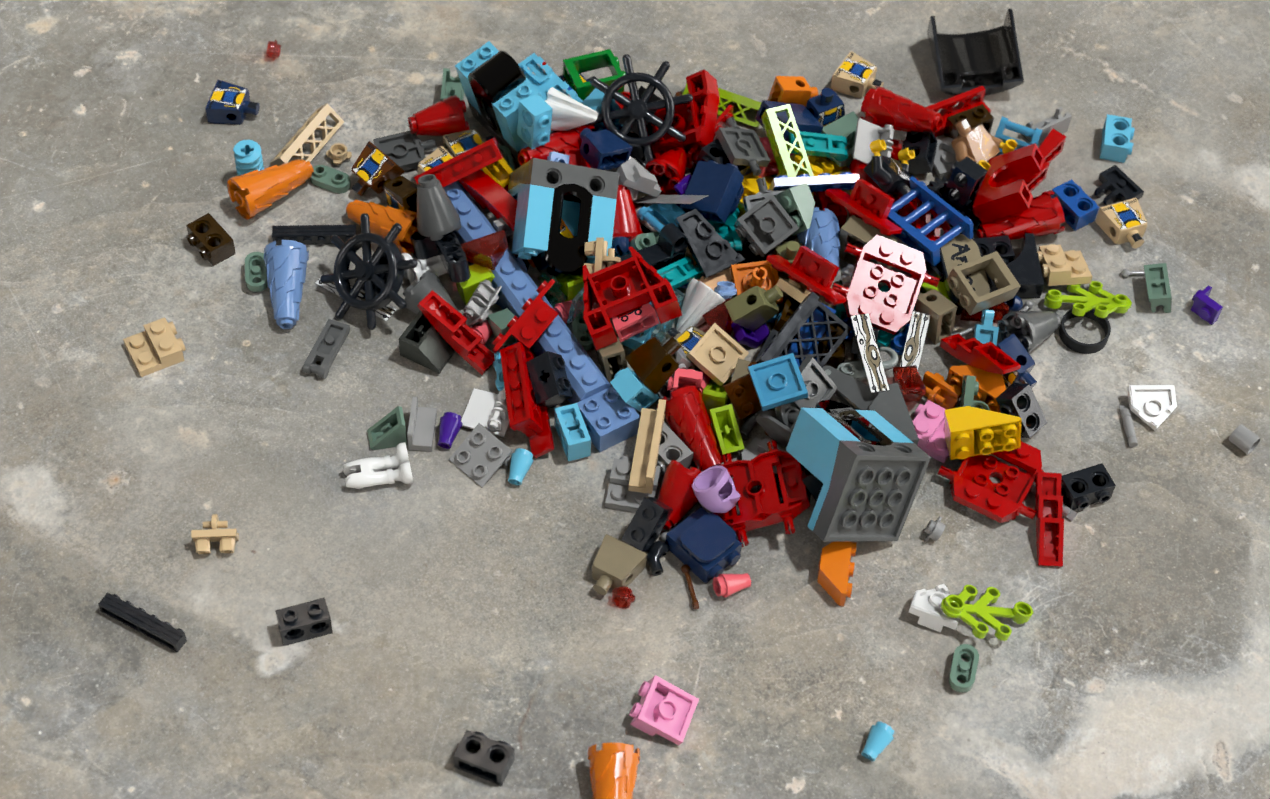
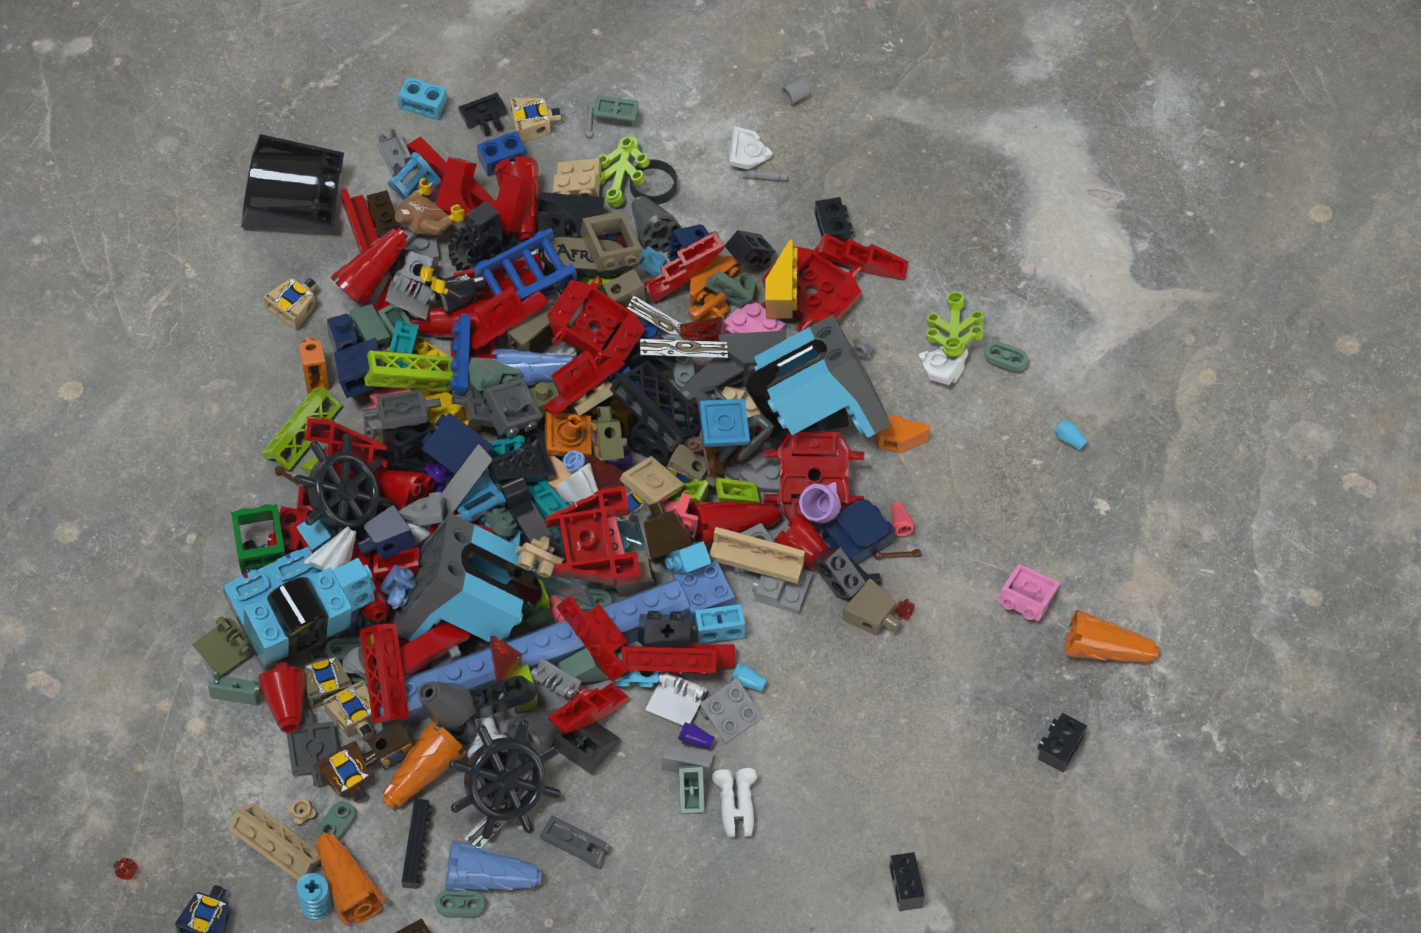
camera: 80 degrees left, 5 degrees up
(1205, 306) = (642, 82): dark purple bracket -> none

